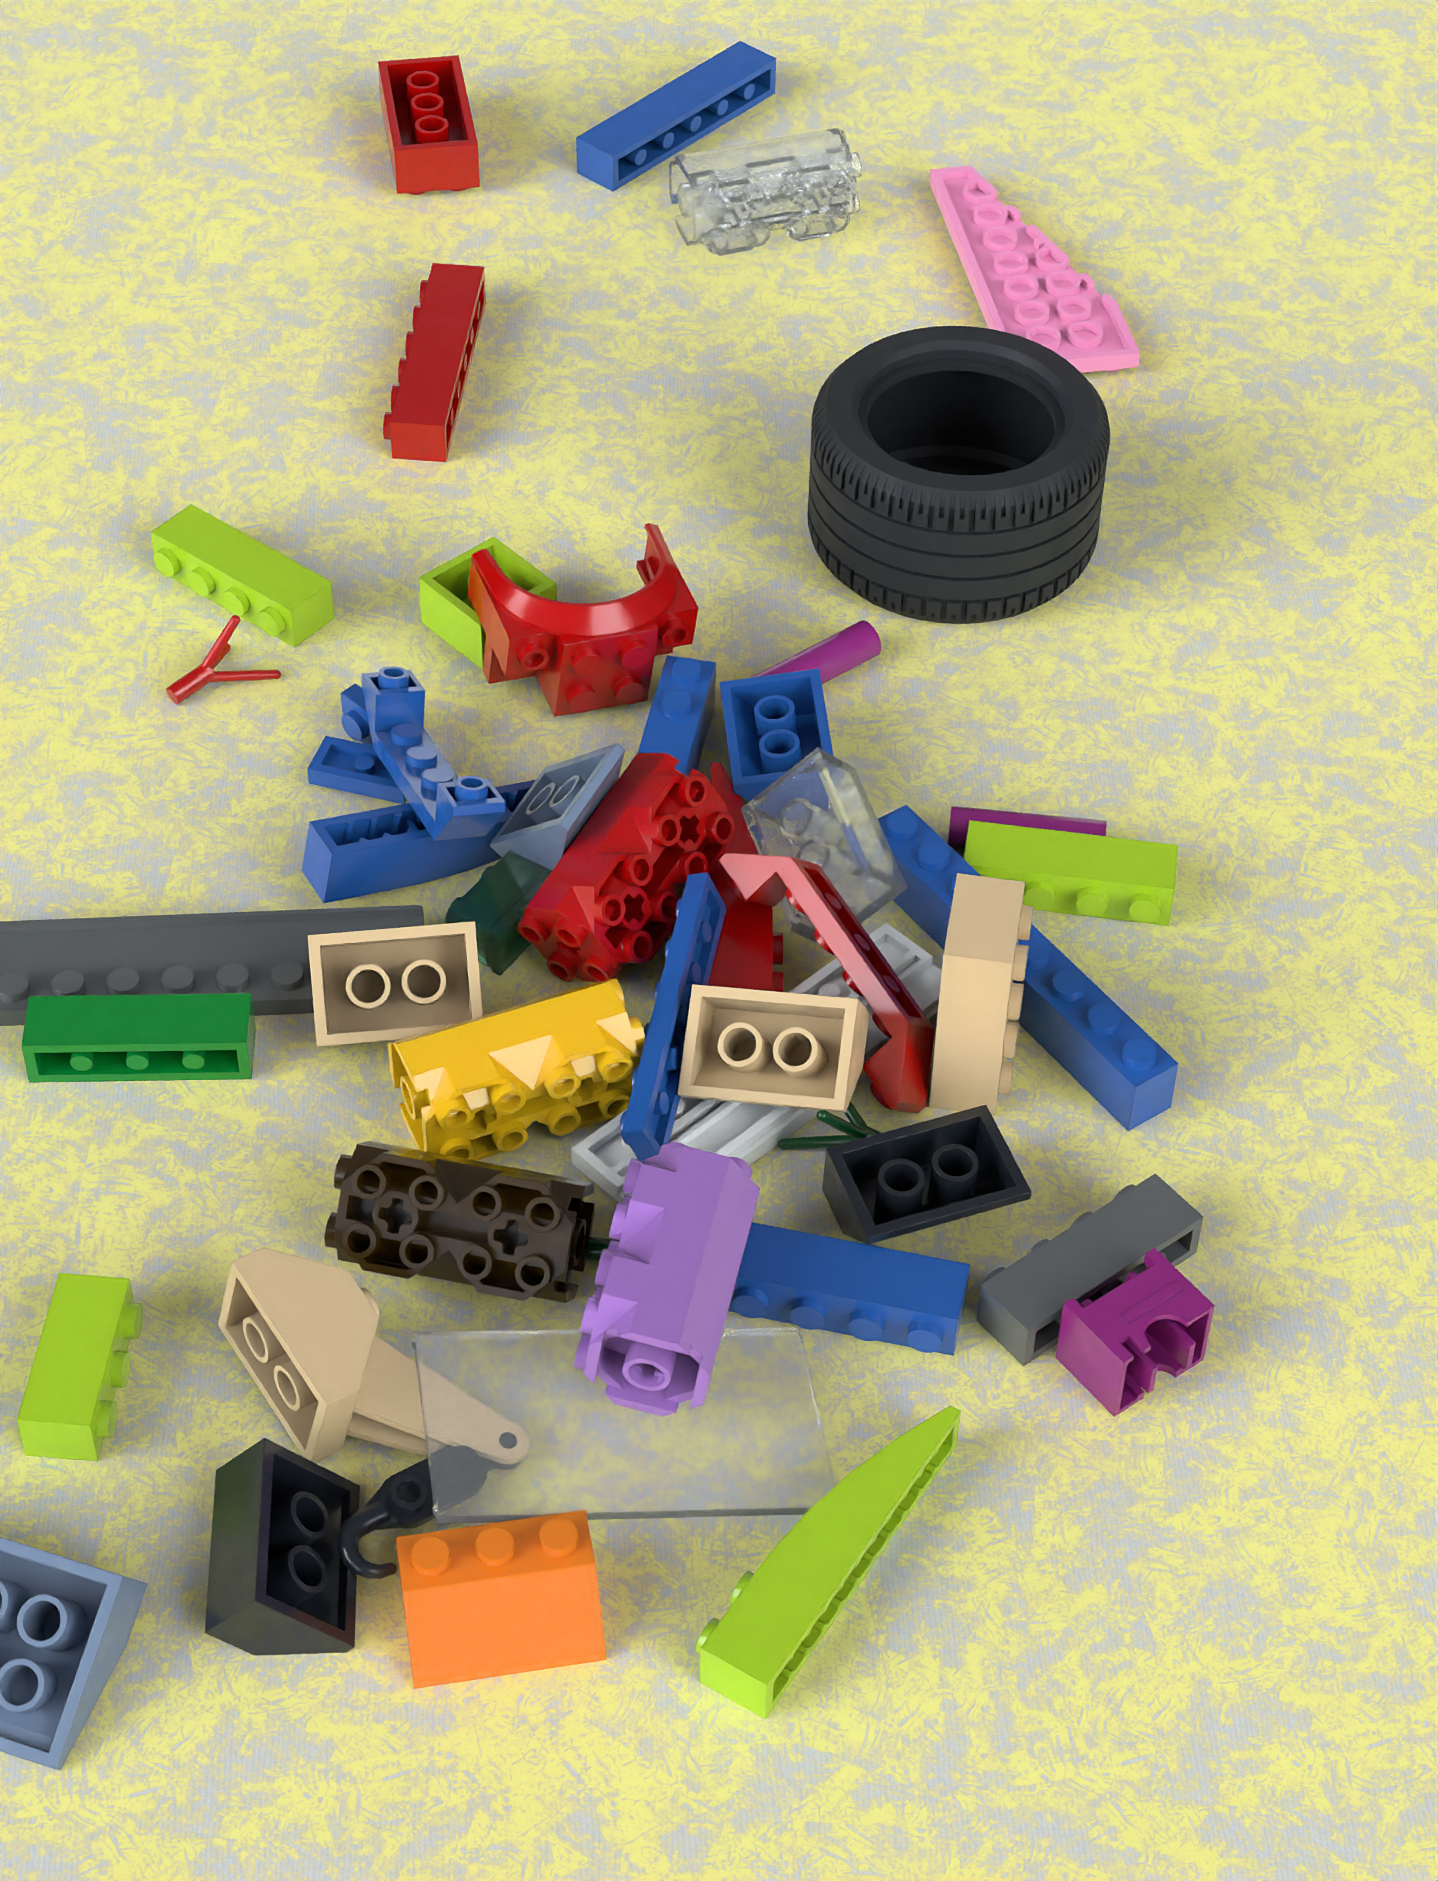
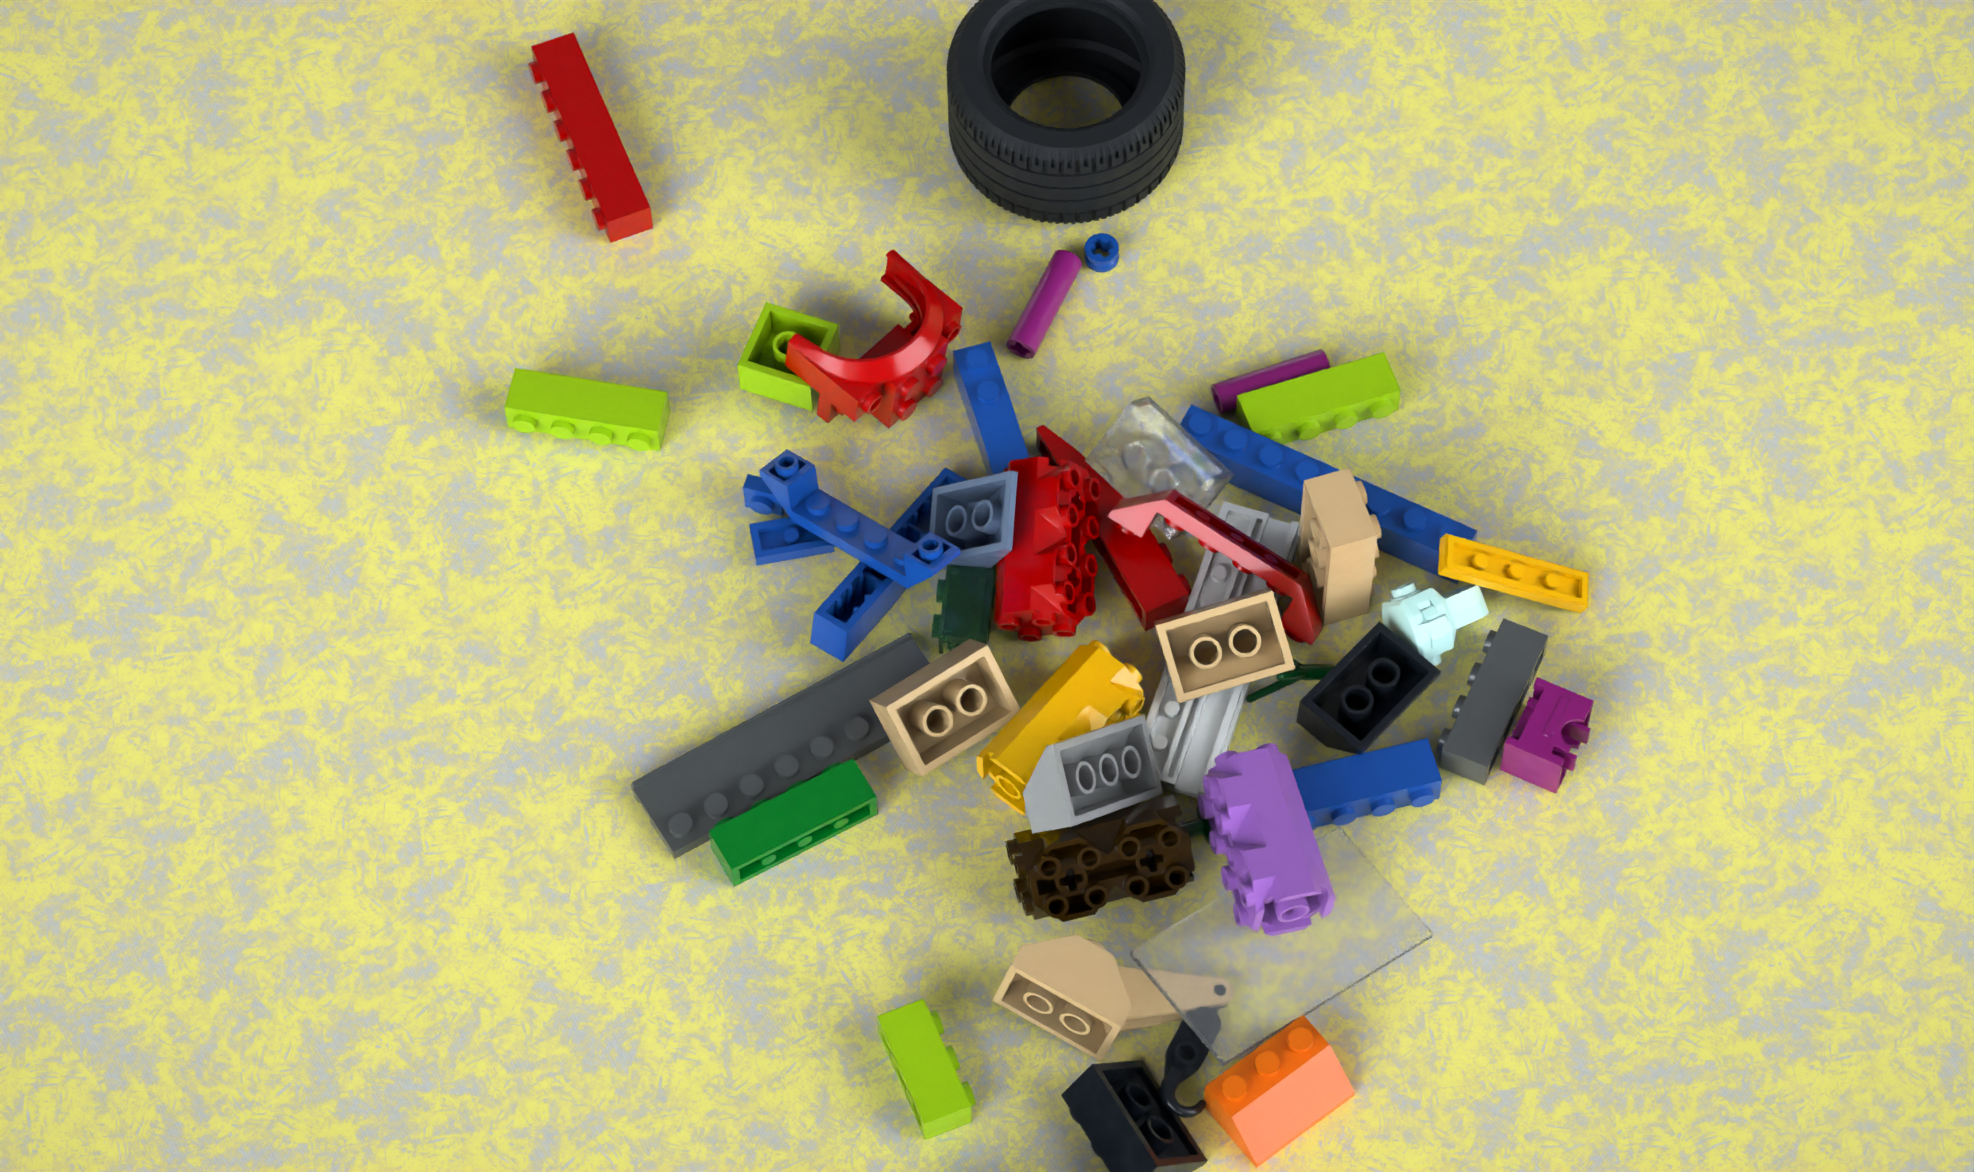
camera: 25 degrees left, 15 degrees up
(204, 672) = (620, 507): red plant -> none
(494, 1100) = (1092, 776): none -> light grey slope
(688, 962) = (1148, 661): blue plate -> none
(772, 726) = (1070, 384): blue slope -> none
(817, 1567) = (1446, 991): lime slope -> none
(921, 655) = (1107, 244): none -> blue bush
(1057, 1138) = (1431, 619): none -> light aqua piece
(1199, 1132) = (1513, 573): none -> yellow tile

